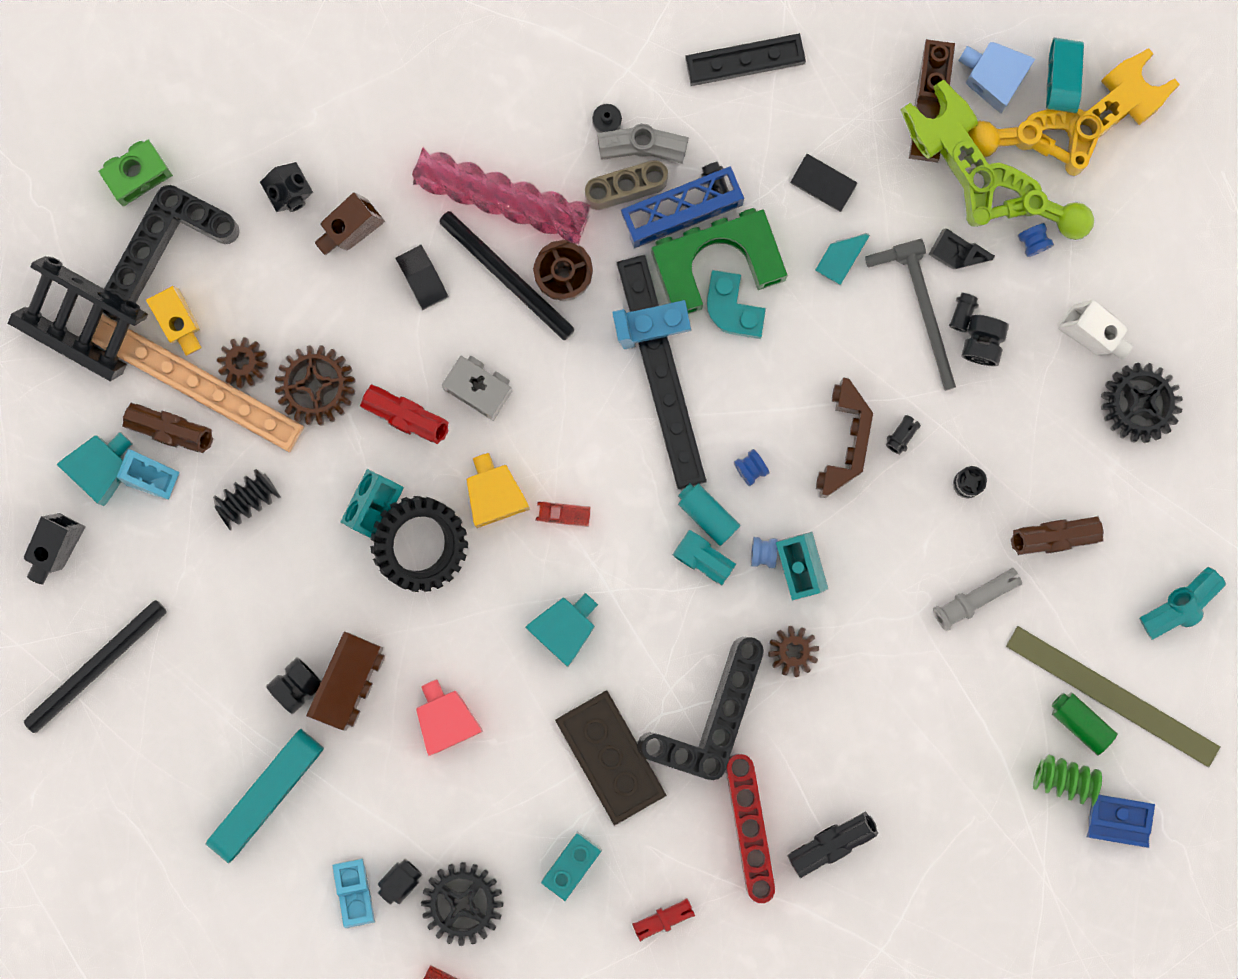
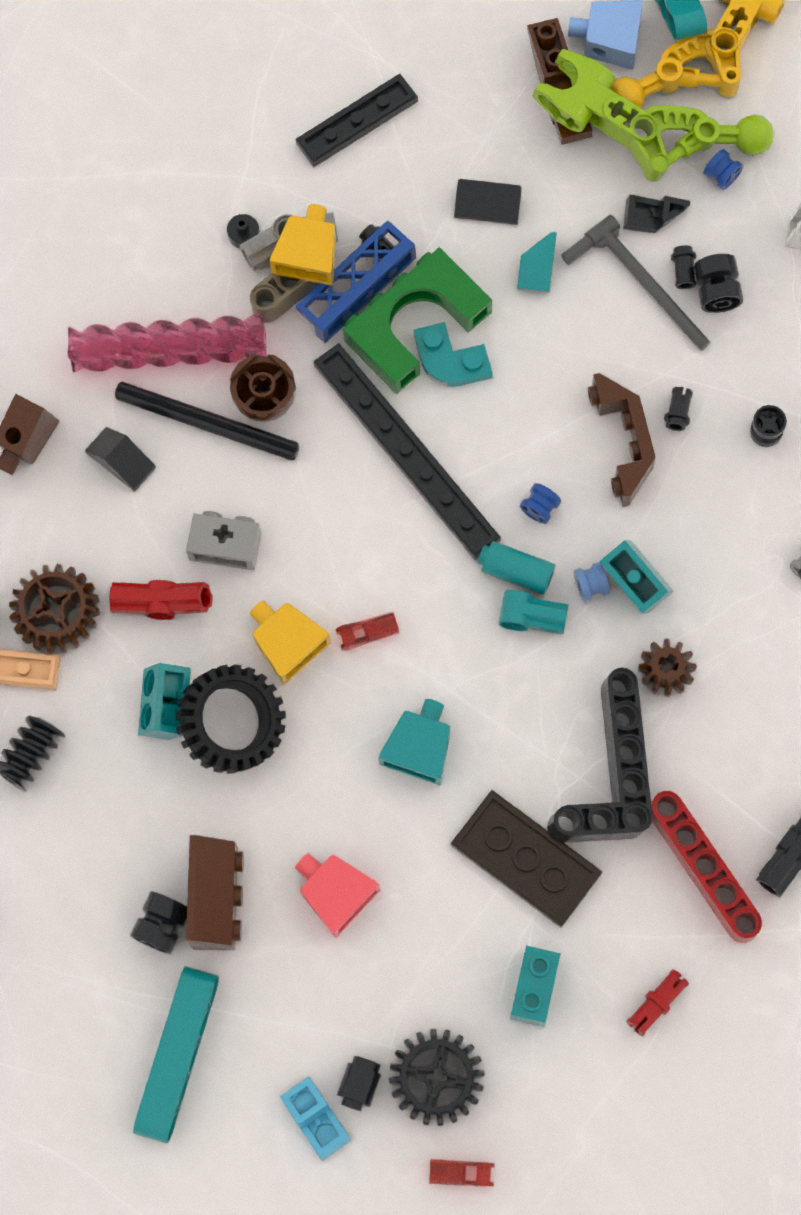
camera: 15 degrees left, 10 degrees down
(651, 164) = (306, 248): none -> yellow torso
(651, 323) = (374, 402): dark azure bracket -> none

